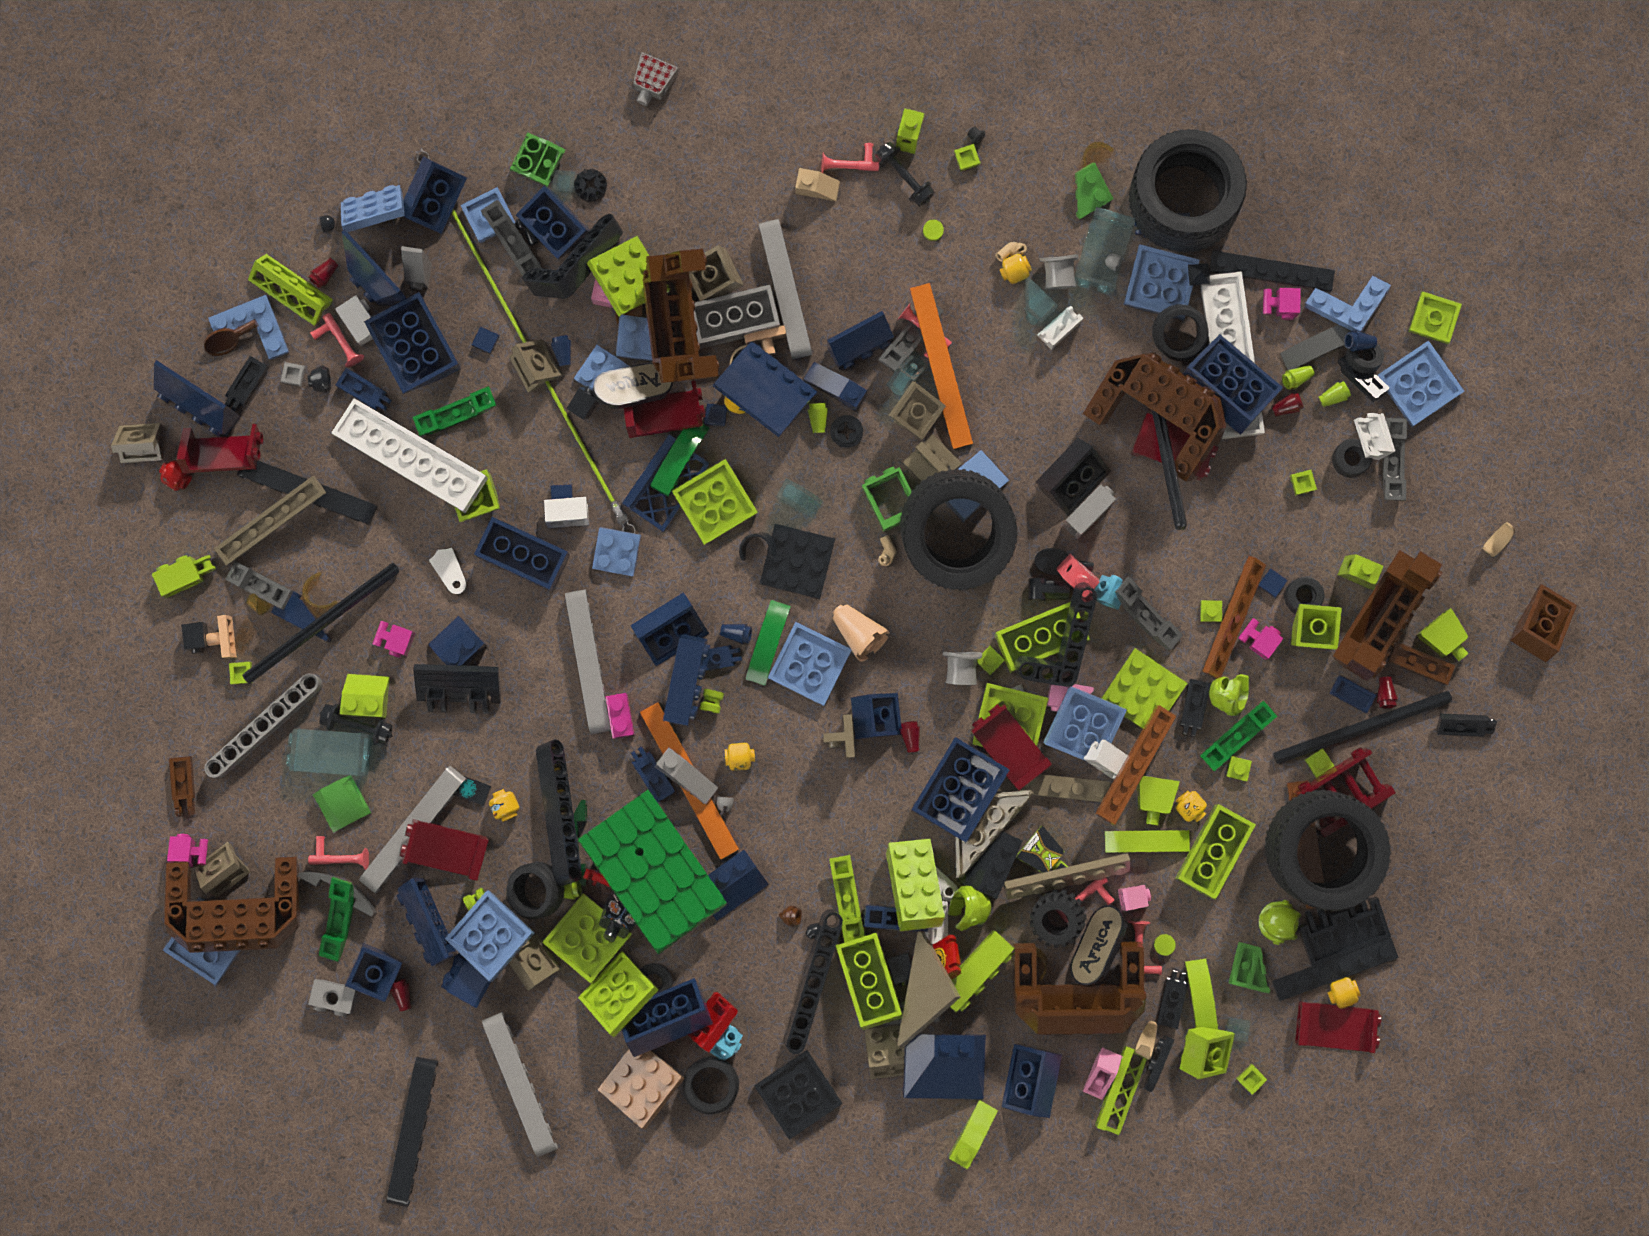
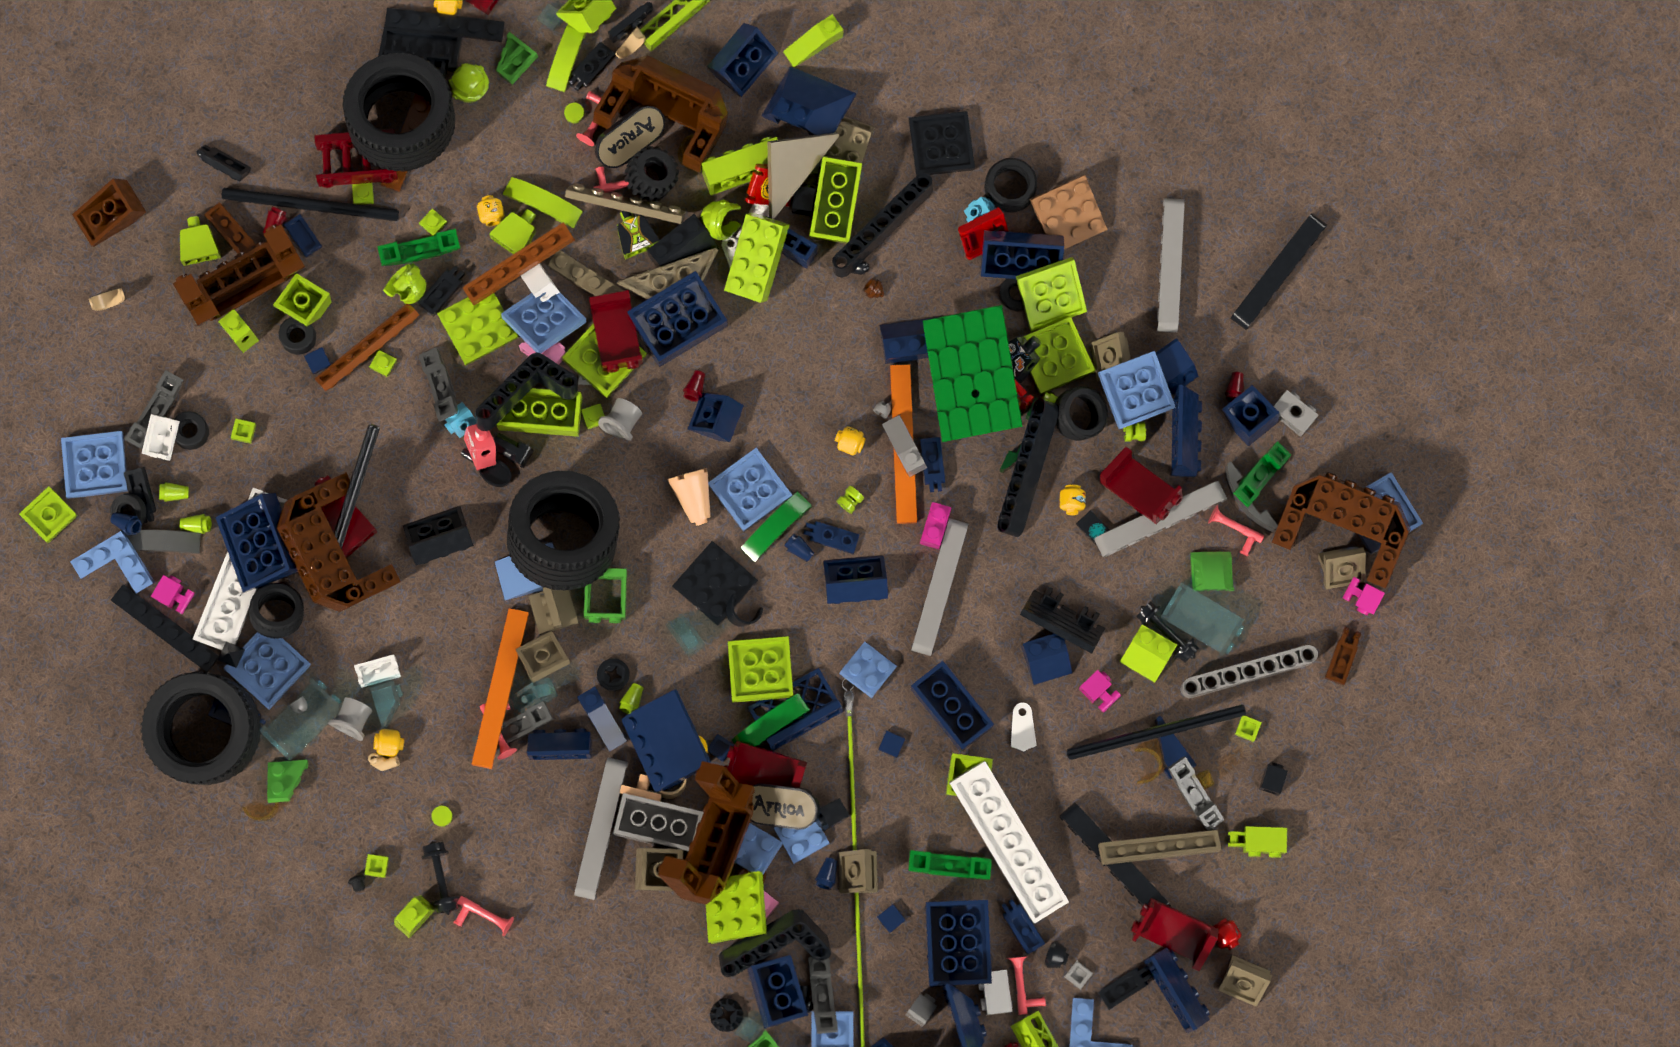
camera: 160 degrees left, 5 degrees down
(224, 637) = (1248, 766): light nougat tile -> none
(226, 338) = (1122, 1036): reddish brown piece -> none
(566, 512) = (894, 726): white hinge -> none
(685, 680) = (864, 523): dark blue brick -> none
(816, 185) = (524, 908): tan slope -> none
(835, 739) = (754, 410): dark tan bracket -> none
(847, 897) = (819, 279): lime slope -> none
(888, 553) = (631, 551): tan arm -> none
(1089, 511) = (440, 495): light grey window -> none
(1102, 1073) = (680, 36): bright pink slope -> none
(1134, 897) = (579, 160): bright pink slope -> none
(1215, 851) = (491, 163): lime brick -> none
(1264, 641) = (352, 314): dark pink brick -> none
(1288, 405) = (218, 503): dark red cone -> none

